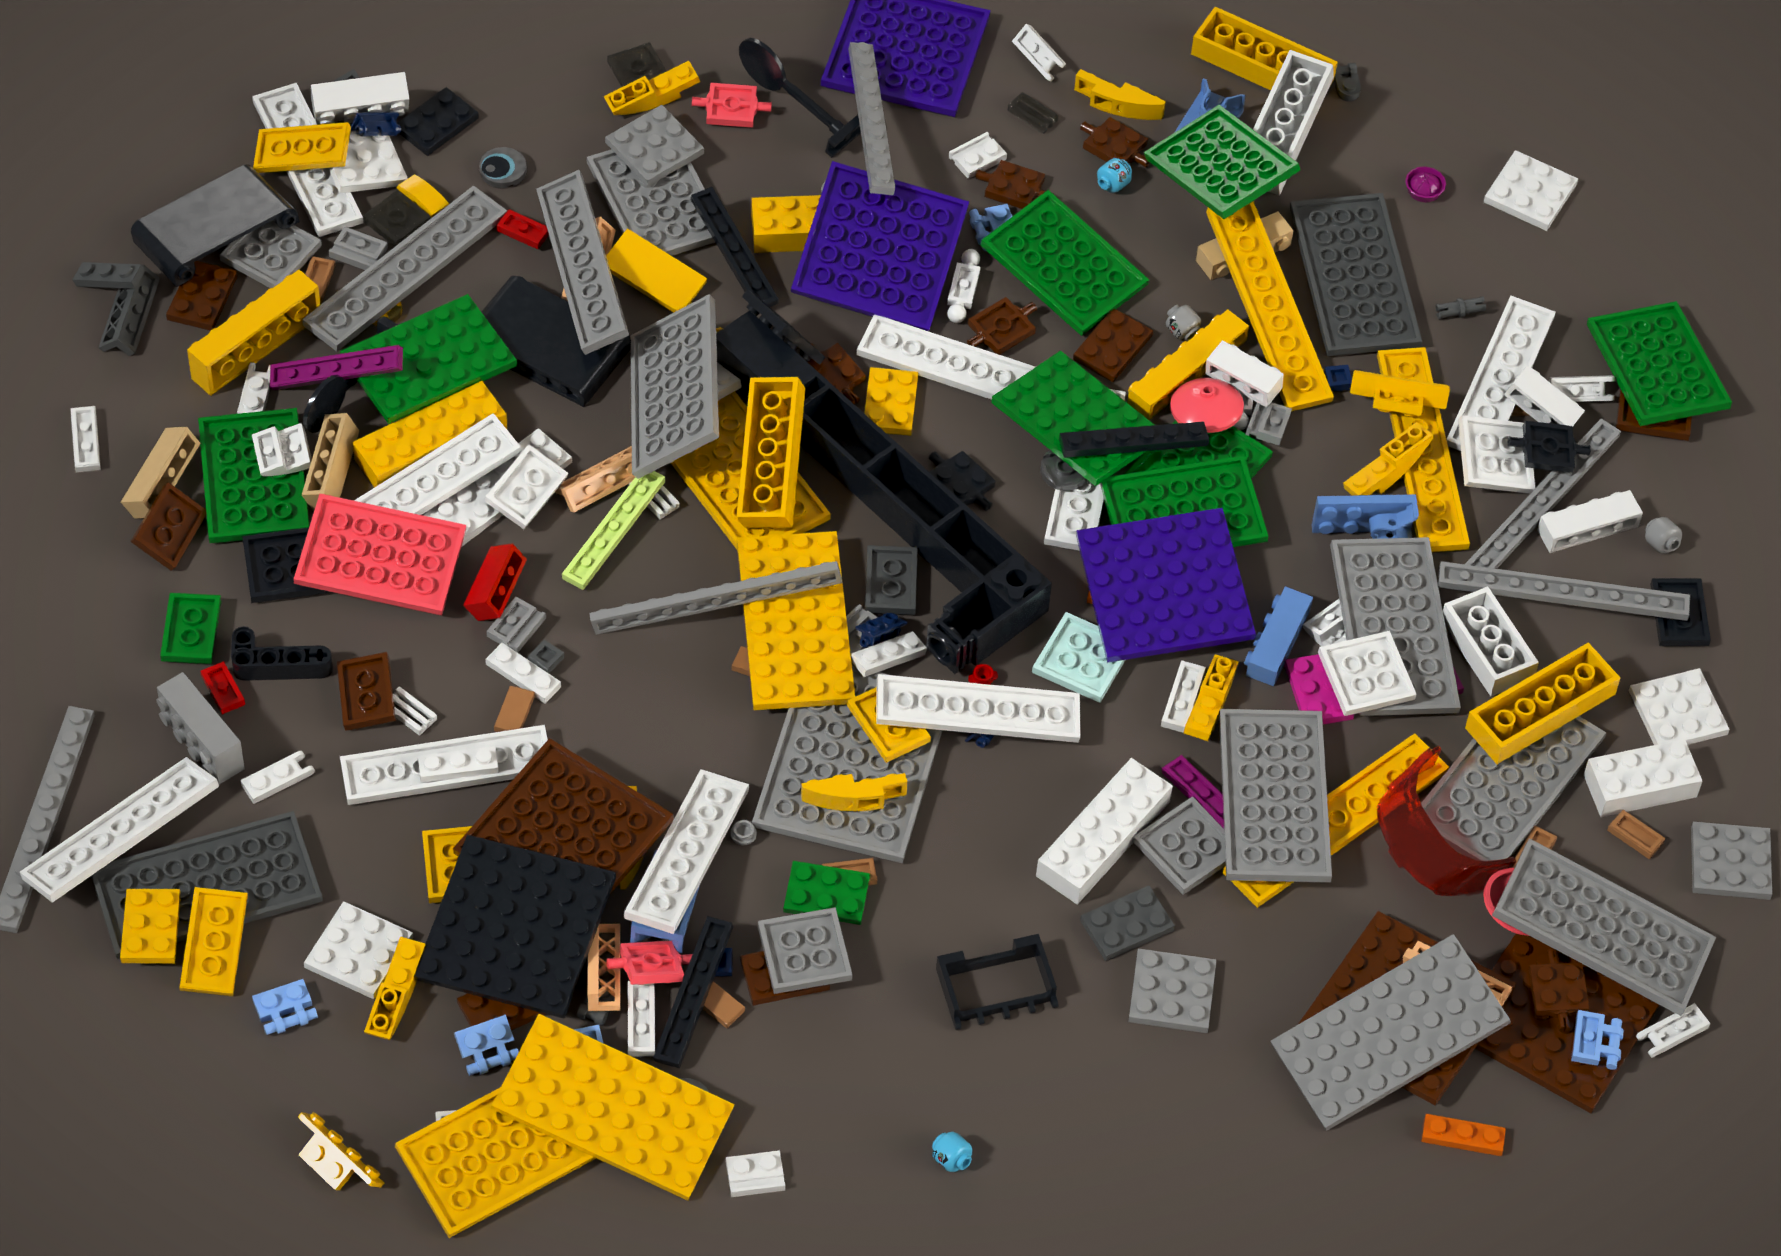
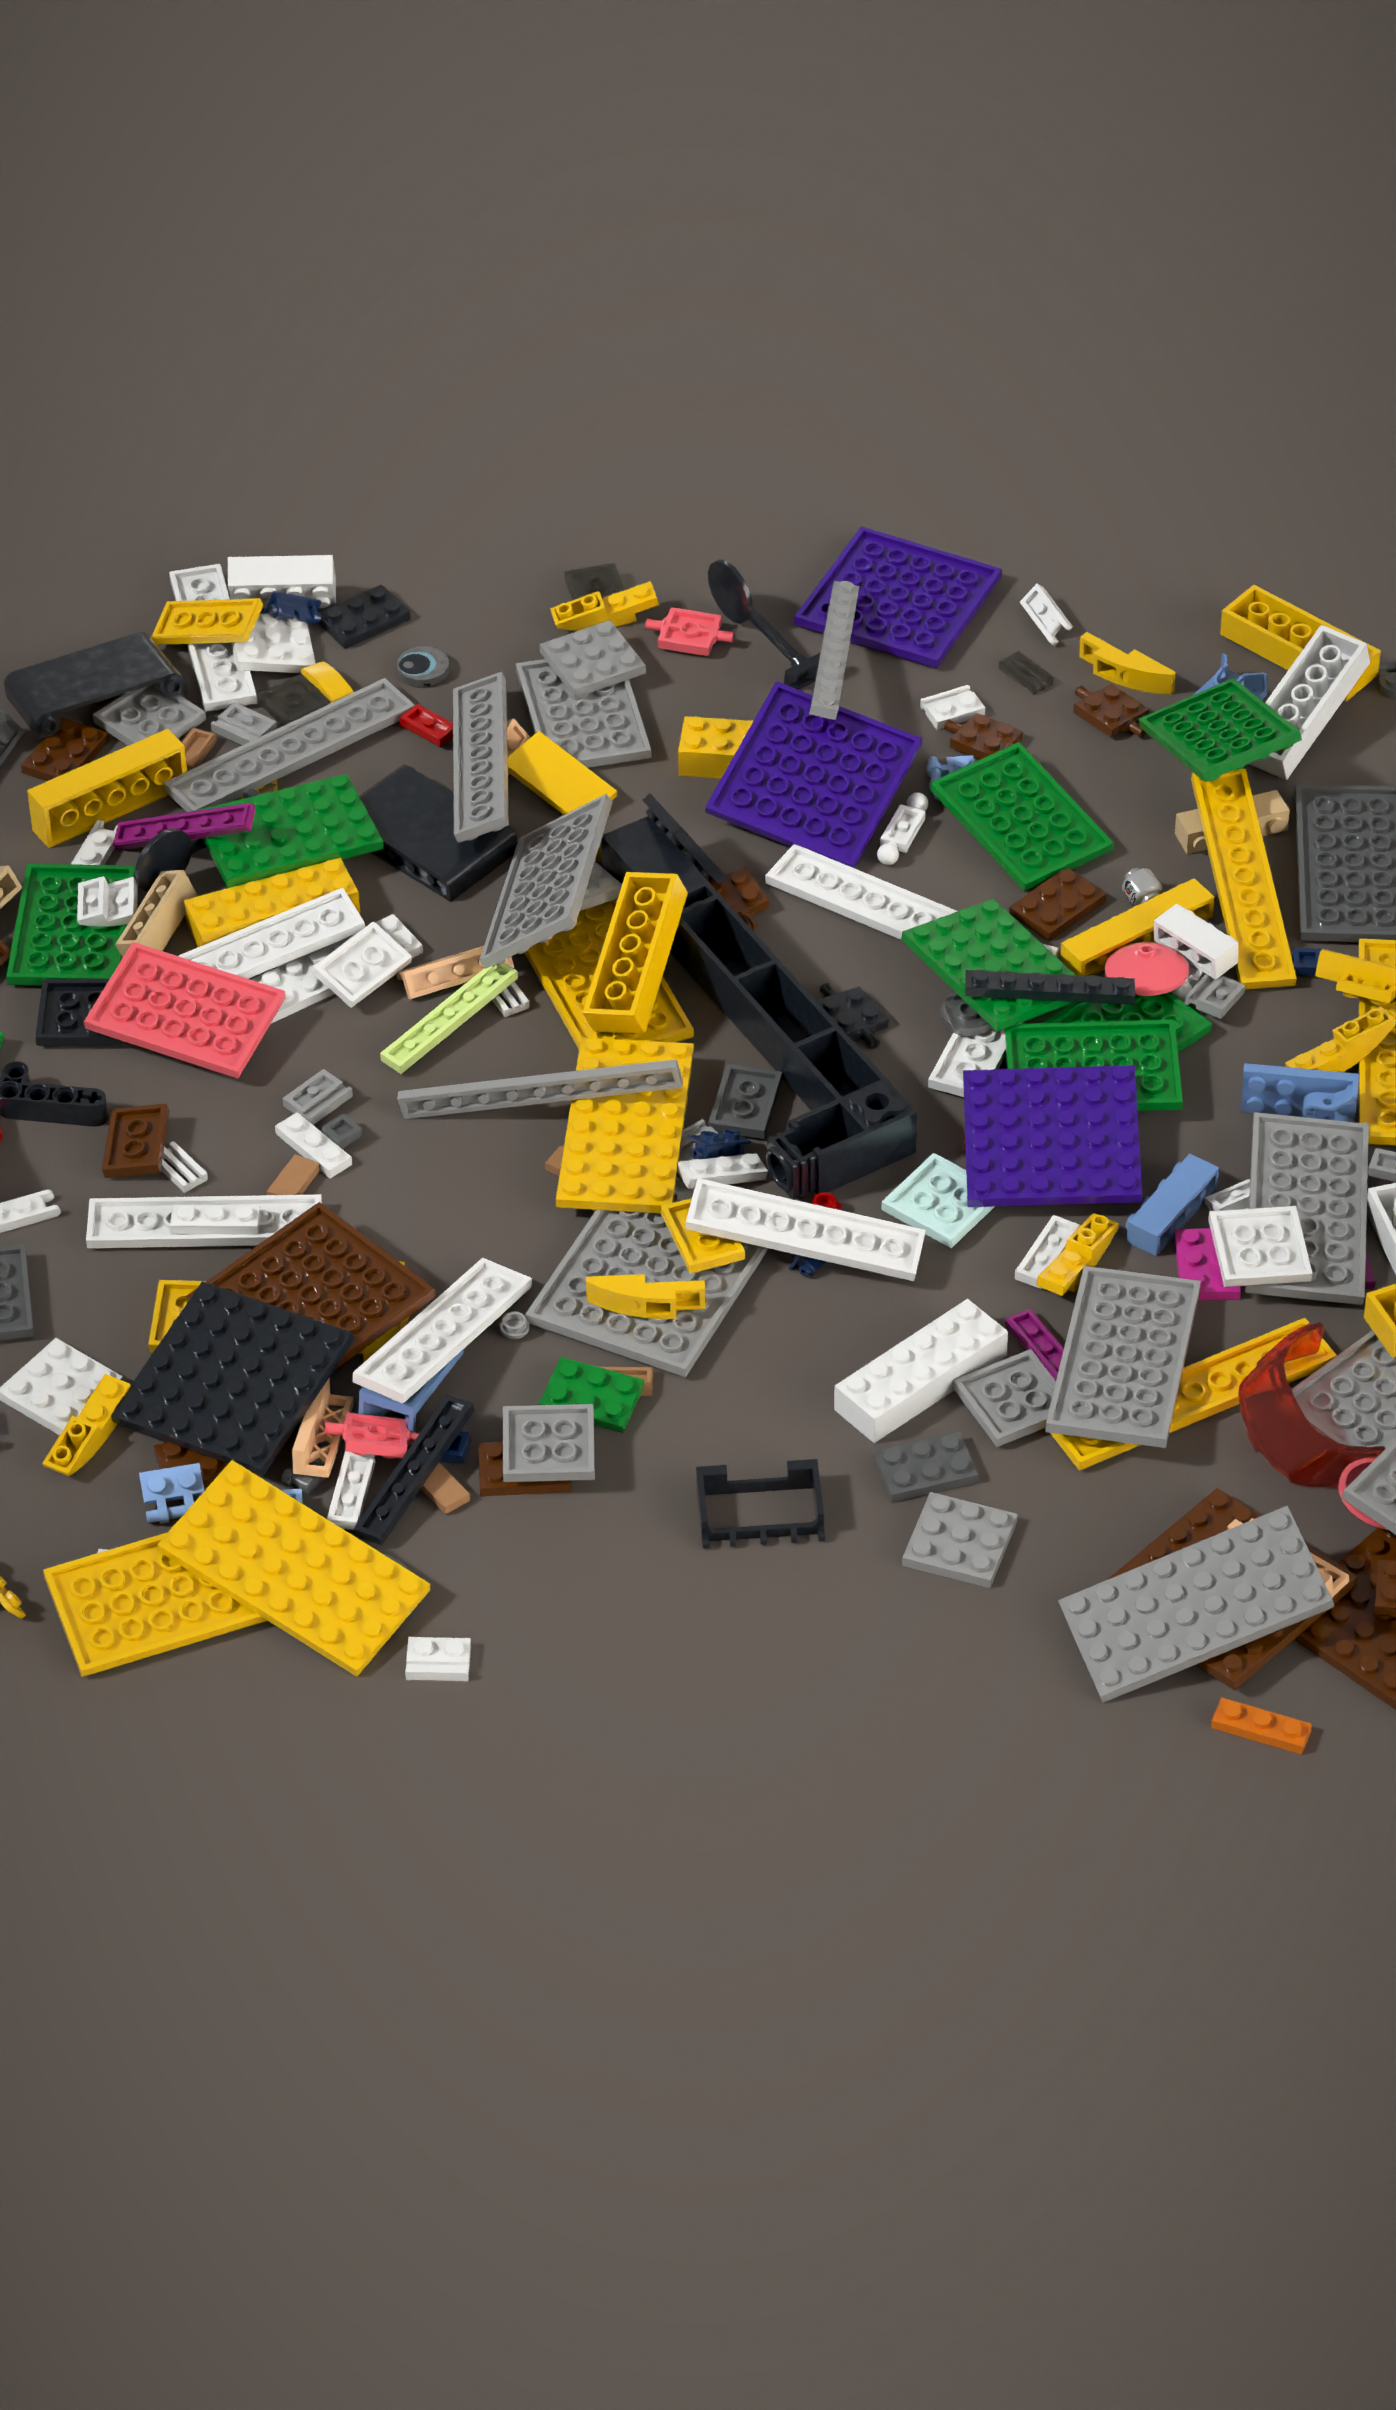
camera: 15 degrees right, 10 degrees down
(495, 582) = (304, 1052): red brick -> none
(733, 245) = (652, 760): black plate -> none
(891, 399) = (794, 929): yellow plate -> none
(952, 1151) = (664, 1663): medium azure head -> none
(1002, 325) = (935, 871): reddish brown plate -> none
(1114, 175) = (1100, 739): medium azure head -> none

